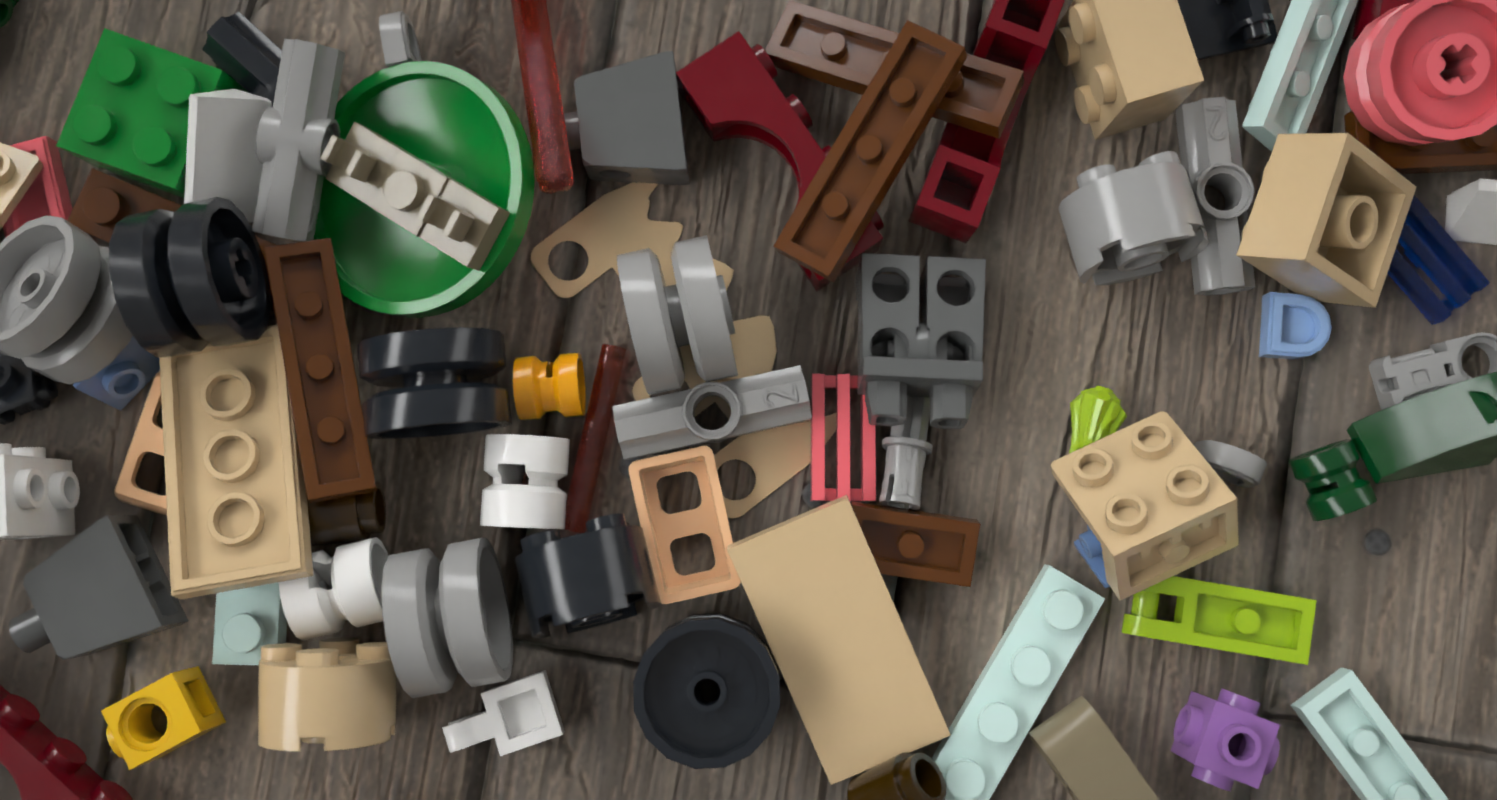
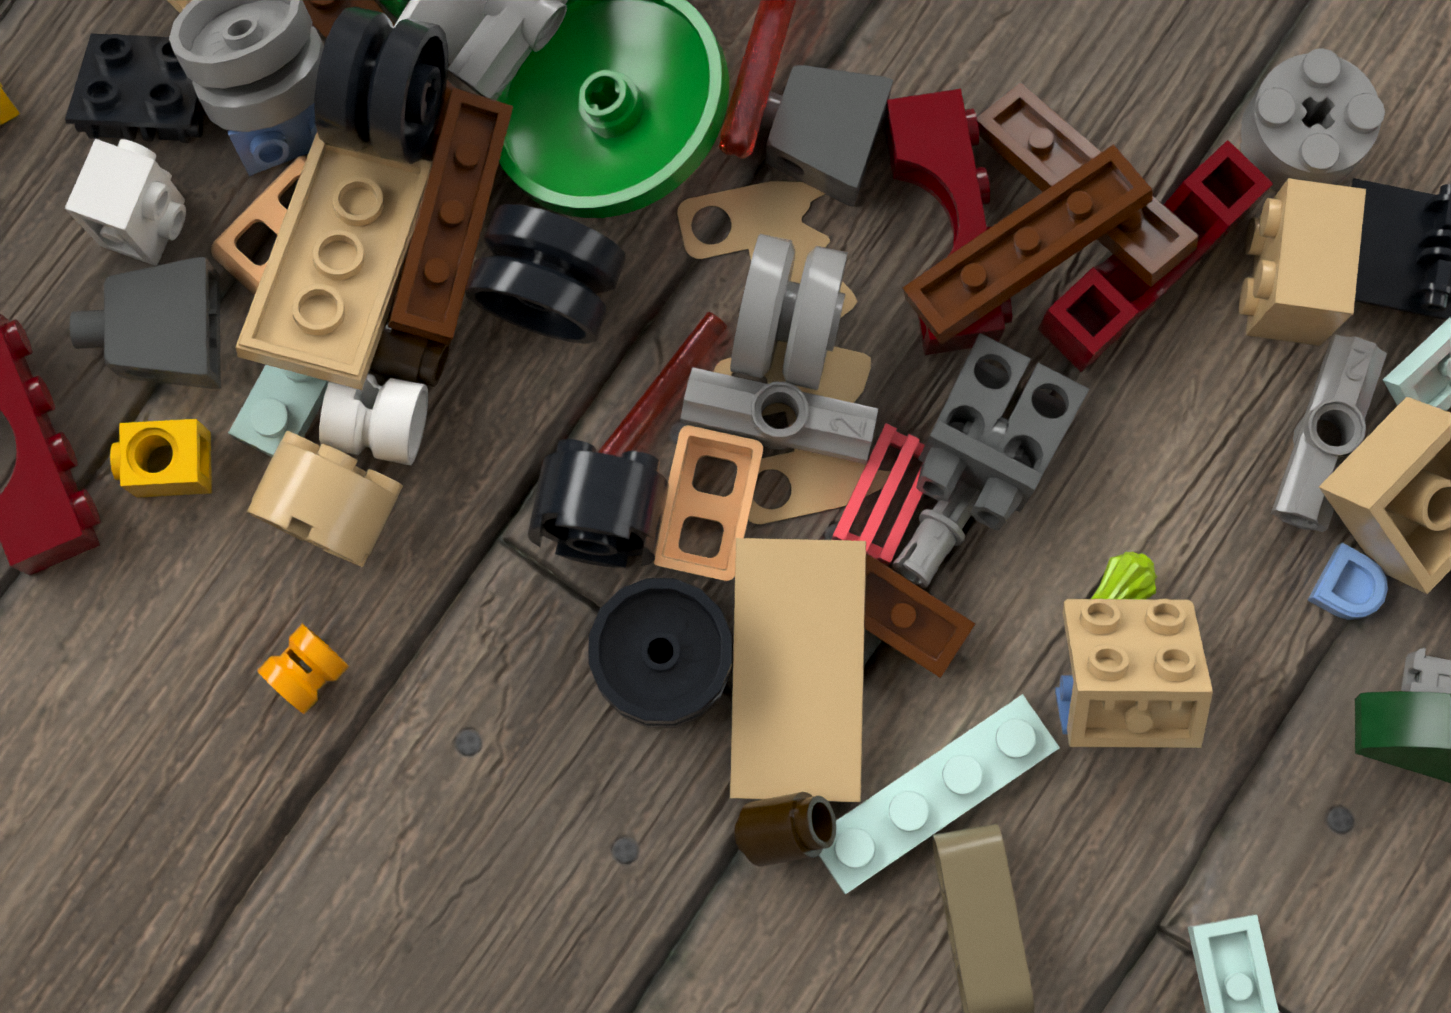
camera: 20 degrees right, 5 degrees down
(415, 195) = (606, 101): plate -> none
(447, 617) = (461, 481): light grey wheel -> none
(515, 715) = (477, 602): white plate -> none
(531, 505) = (562, 409): white wheel -> none
(549, 386) = (643, 326): light orange wheel -> none
(1132, 219) = (1239, 415): light grey brick -> none
(1226, 619) = (1160, 815): lime plate -> none
(1226, 739) = (1086, 921): medium lavender brick -> none
(1233, 463) = (1233, 679): light grey tile -> none
(1329, 465) = (1319, 736): dark green wheel -> none

